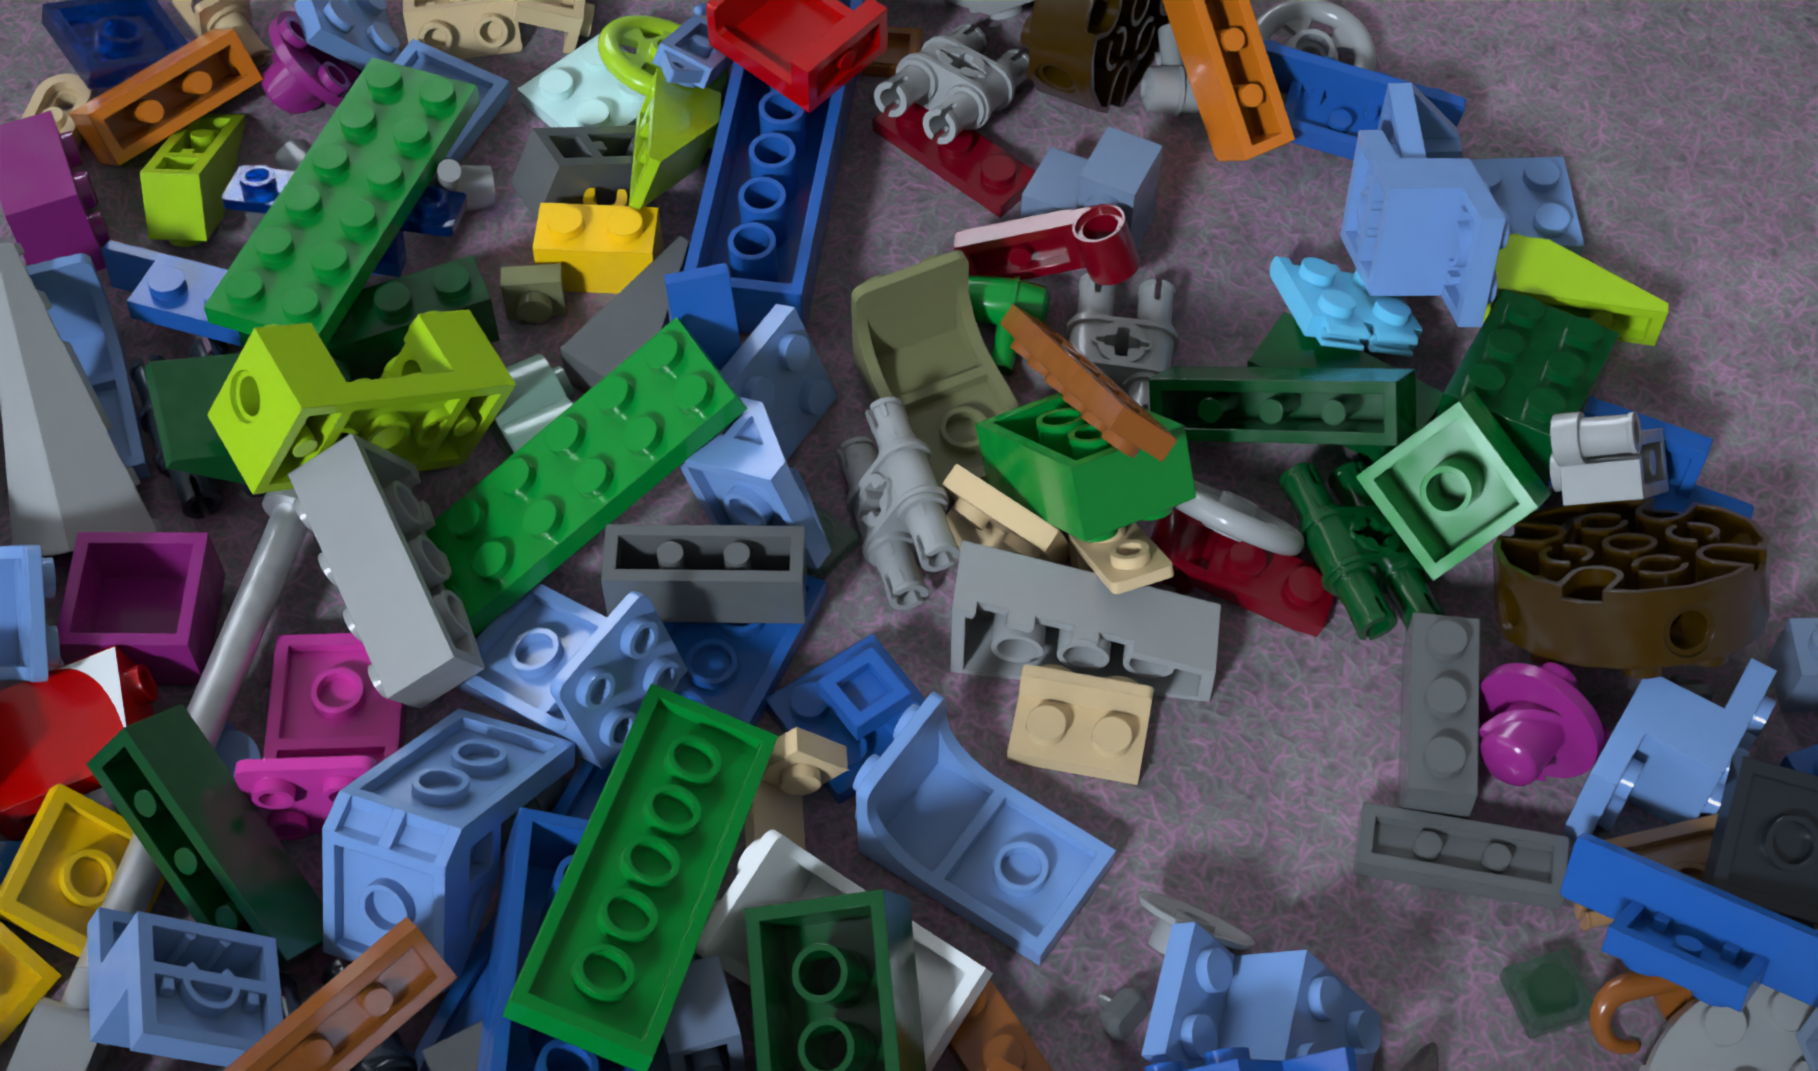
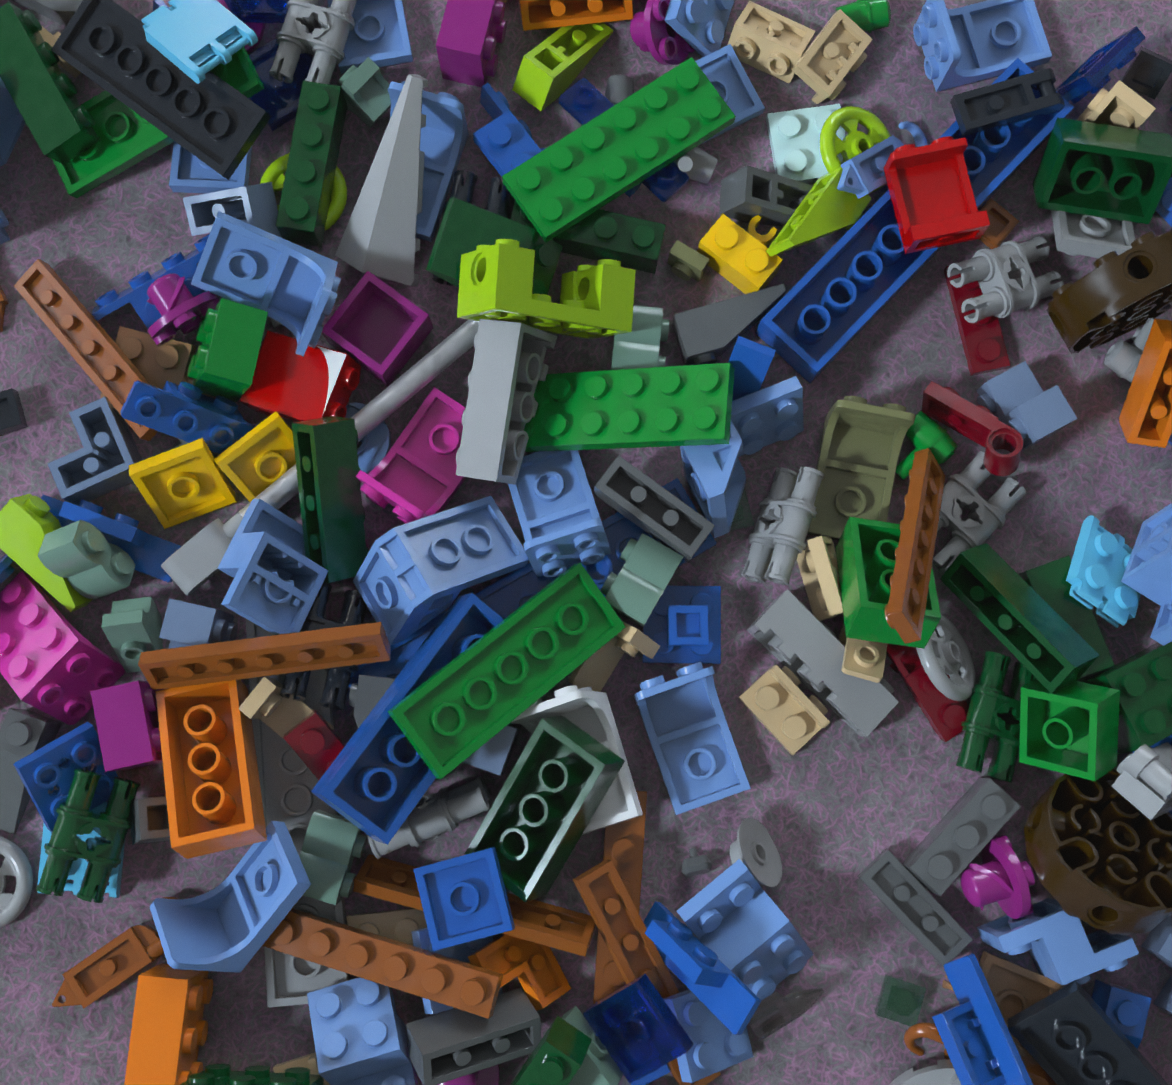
camera: 35 degrees right, 25 degrees up
(754, 667) = (641, 579): none -> sand green brick

